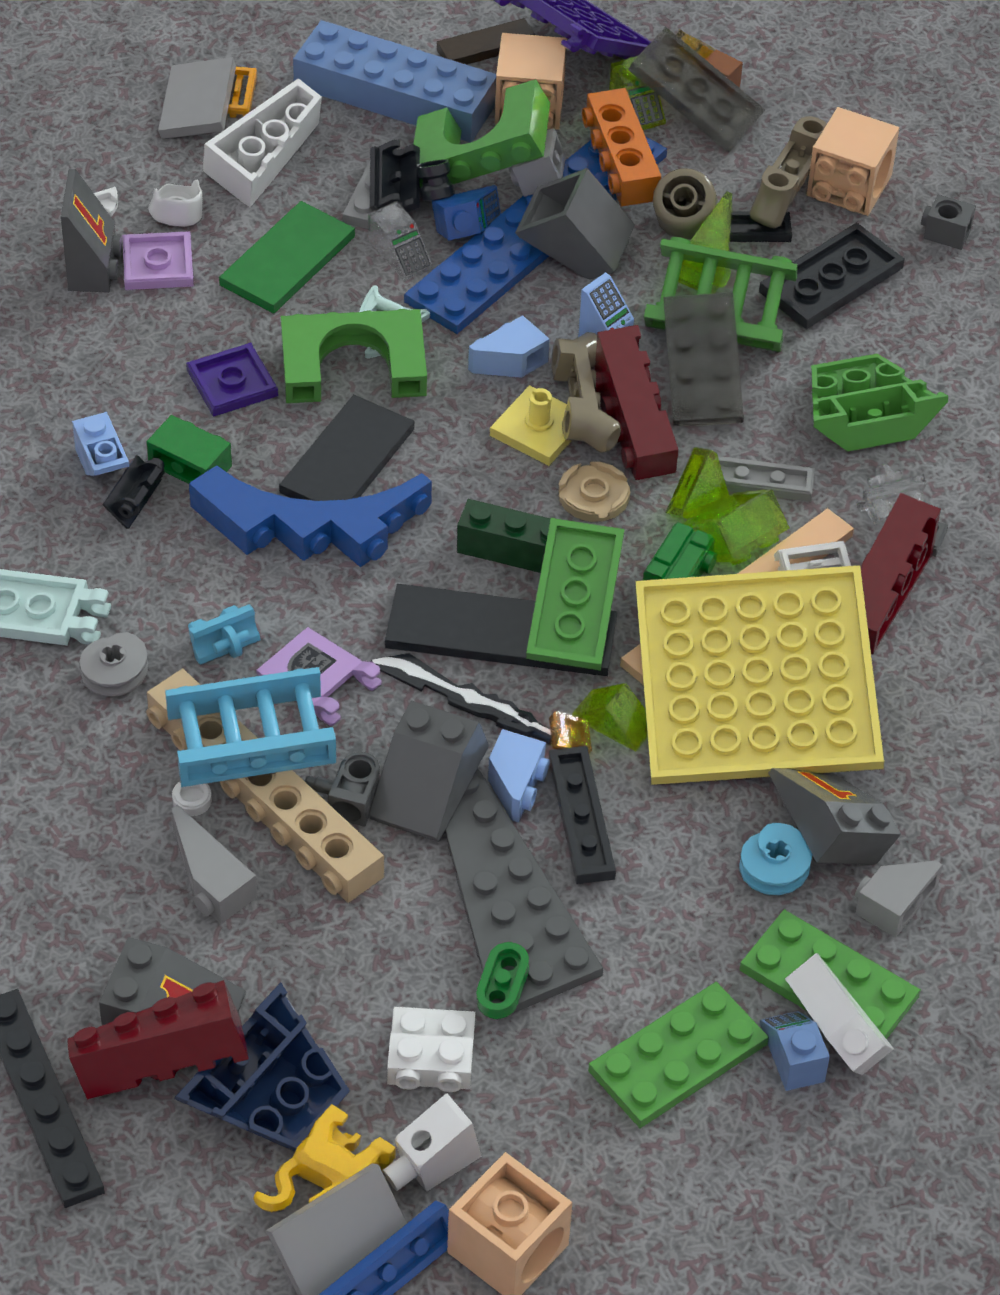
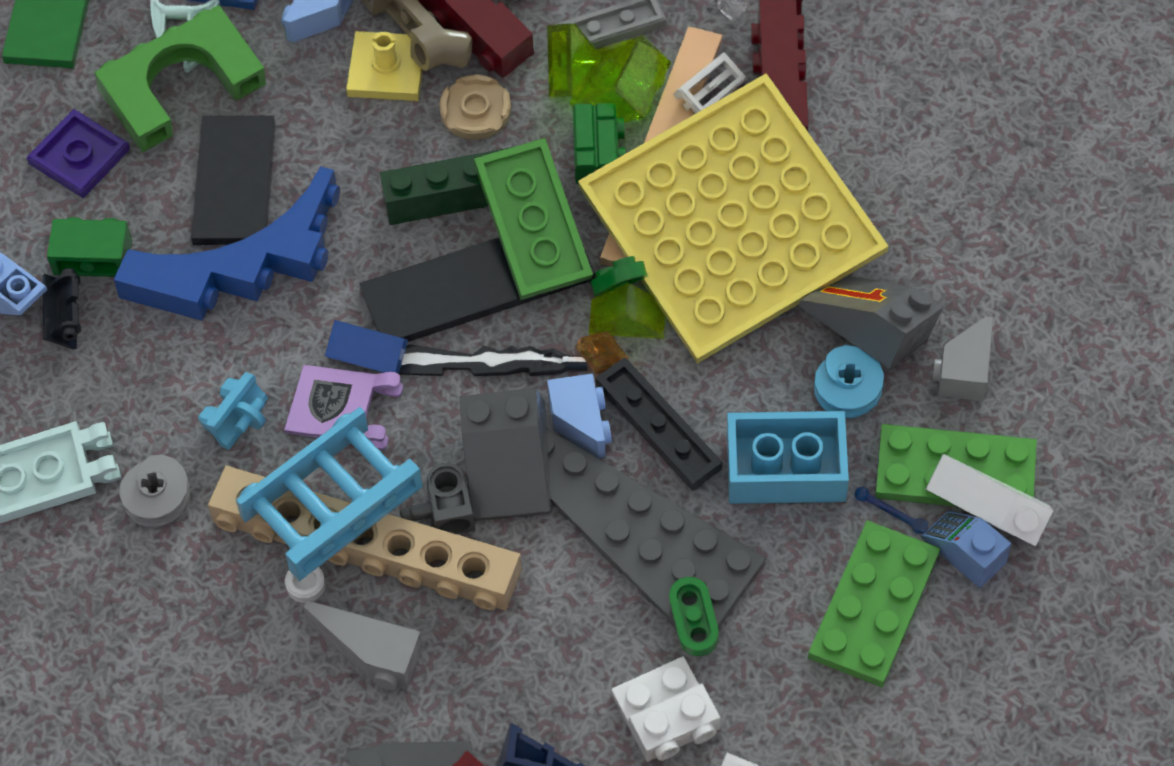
camera: 25 degrees left, 10 degrees up
(367, 635) = (366, 347): none -> blue tile
(626, 670) = (621, 272): none -> green plate
(674, 892) = (787, 457): none -> medium azure brick
(763, 1010) = (918, 525): none -> clear blue hinge

